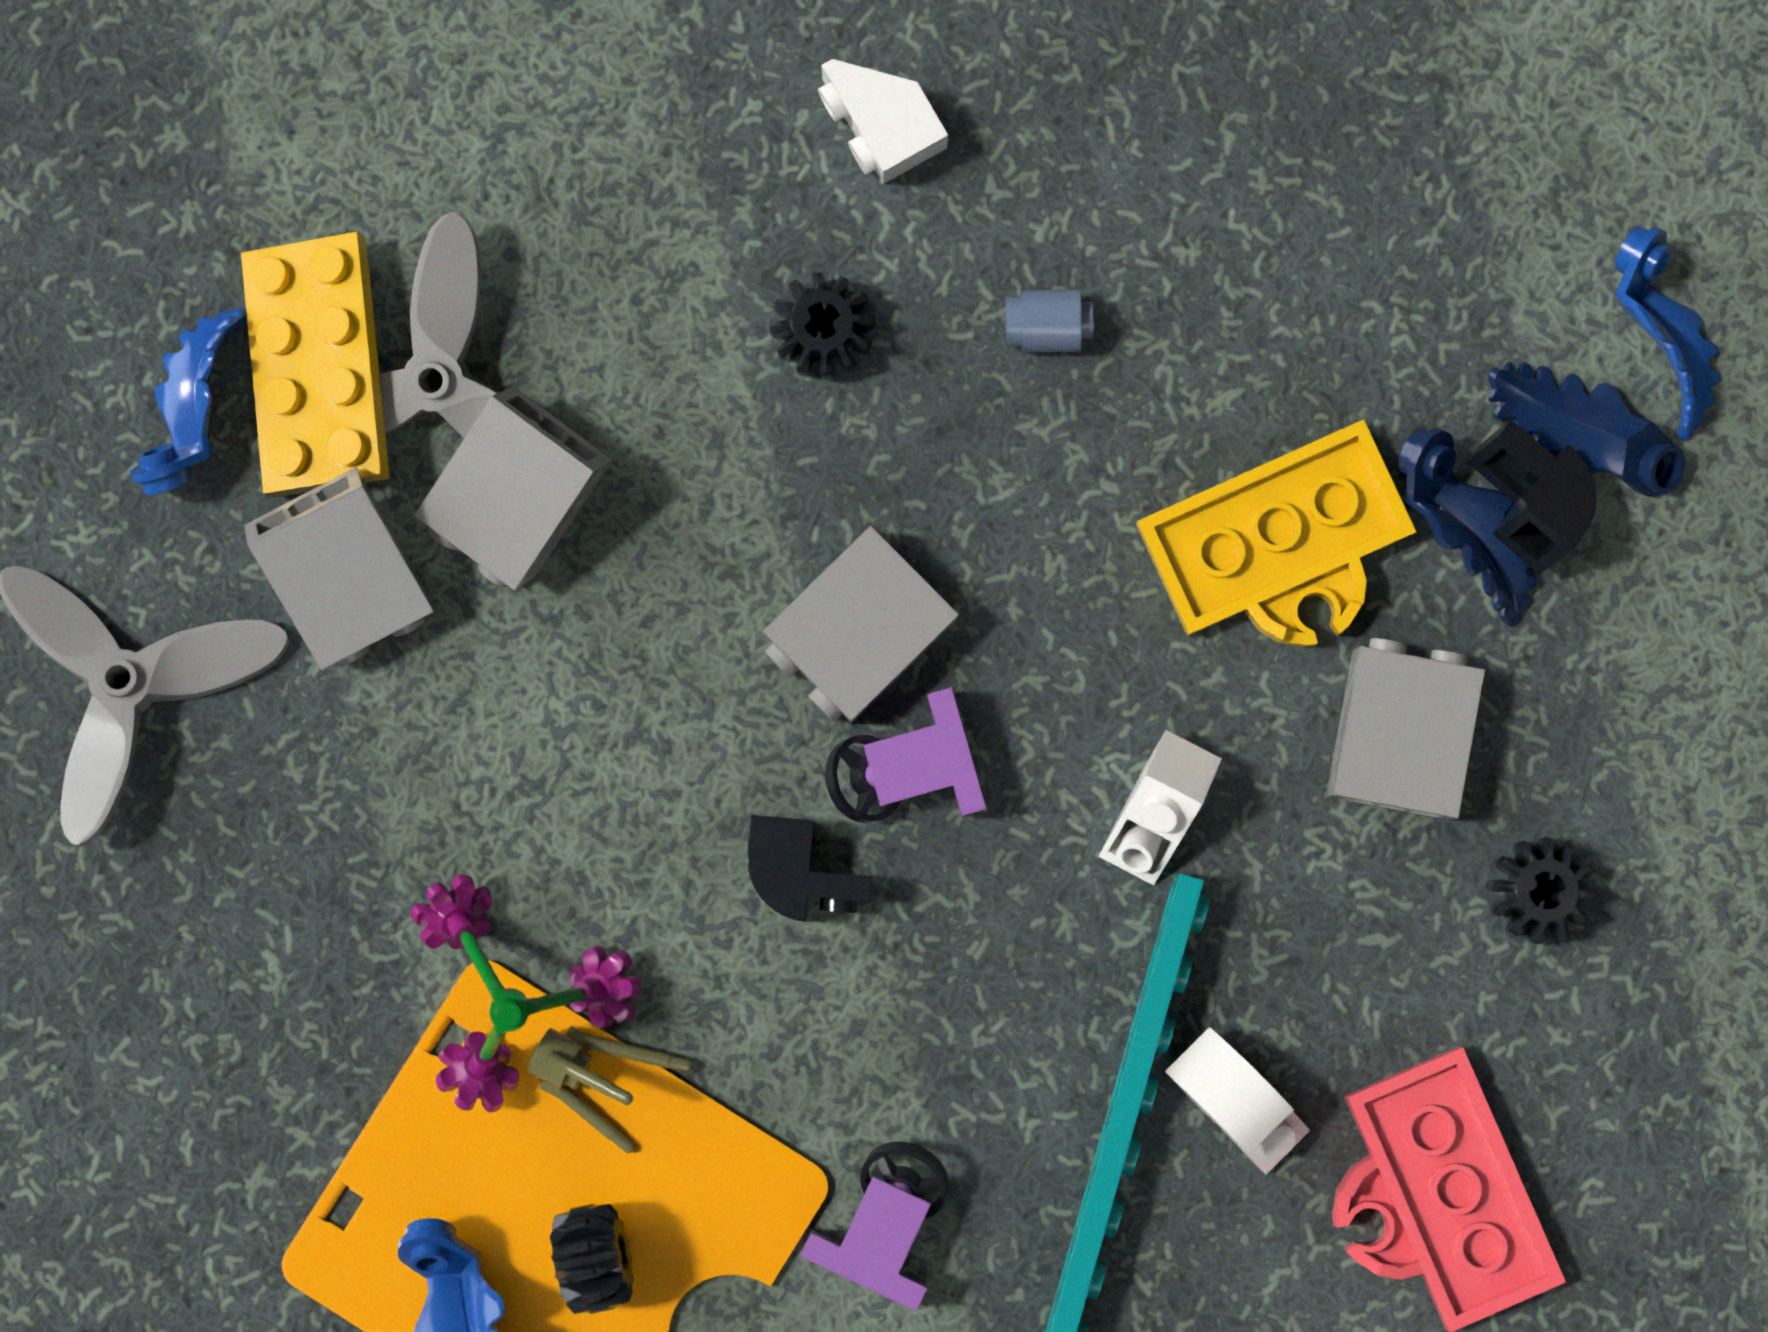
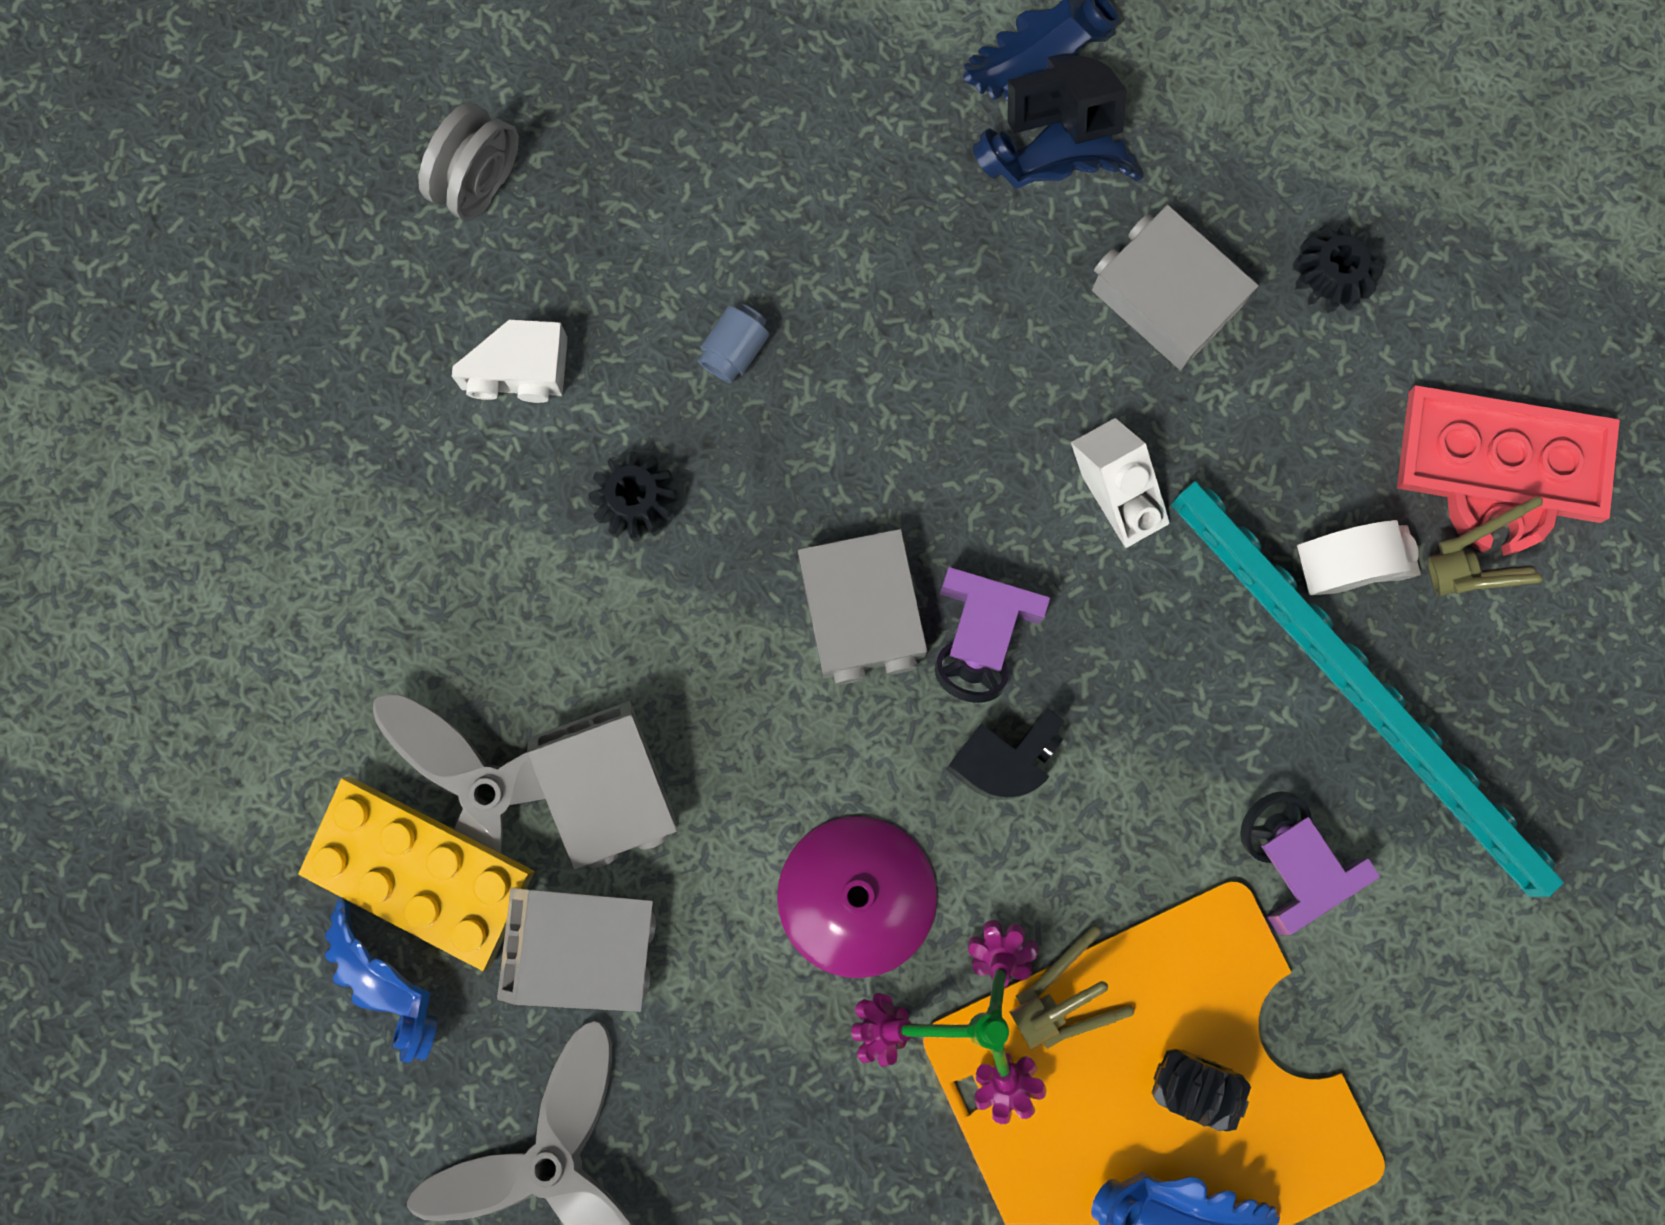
camera: 55 degrees left, 5 degrees down
(615, 817) = (816, 905): none -> magenta dish
(1280, 537) = (986, 286): yellow plate -> none
(1288, 1208) = (1460, 571): none -> olive plant

